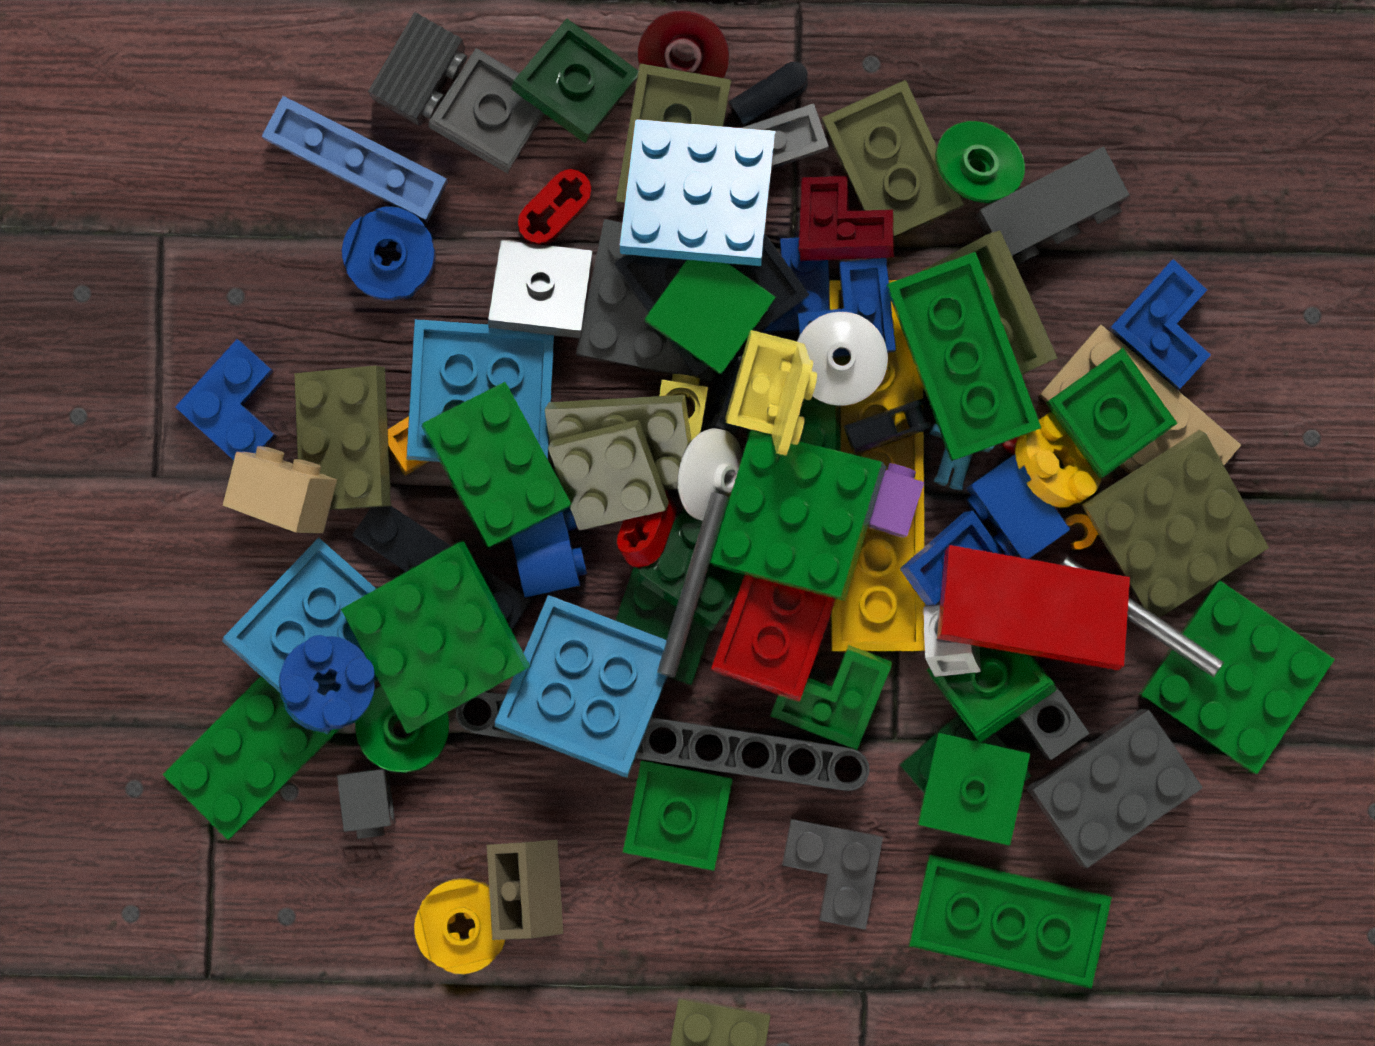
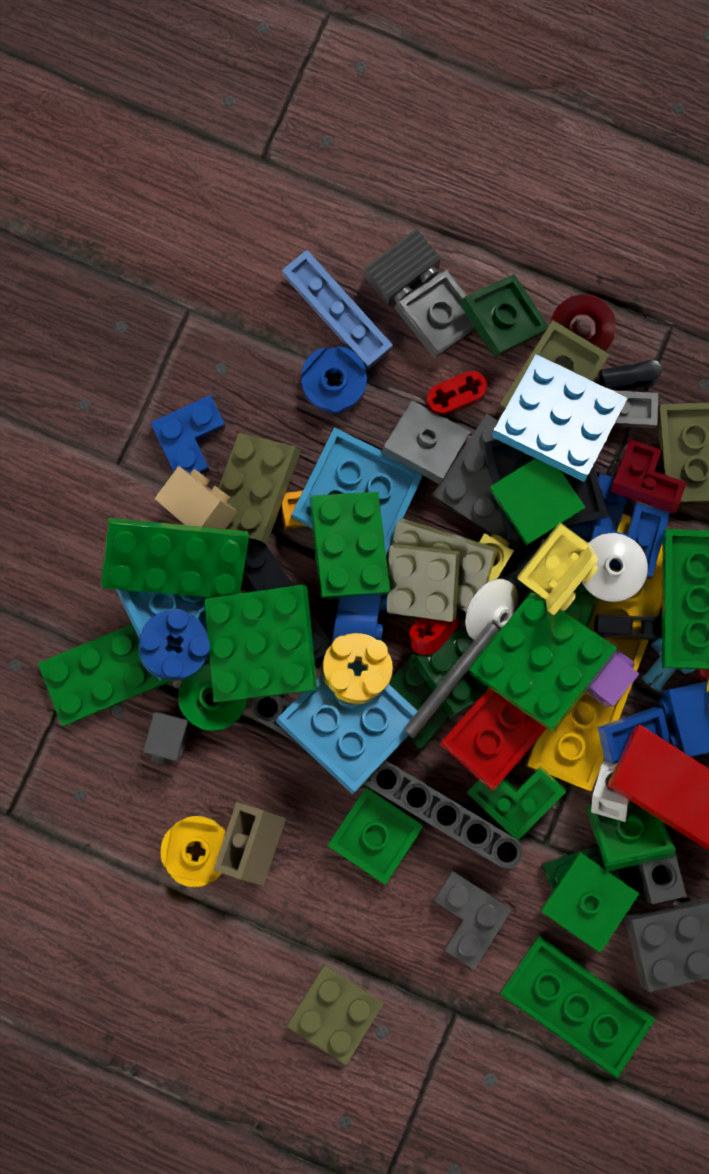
camera: 20 degrees right, 5 degrees down
(281, 575) = (173, 558): none -> green plate
(580, 593) = (371, 654): none -> yellow plate

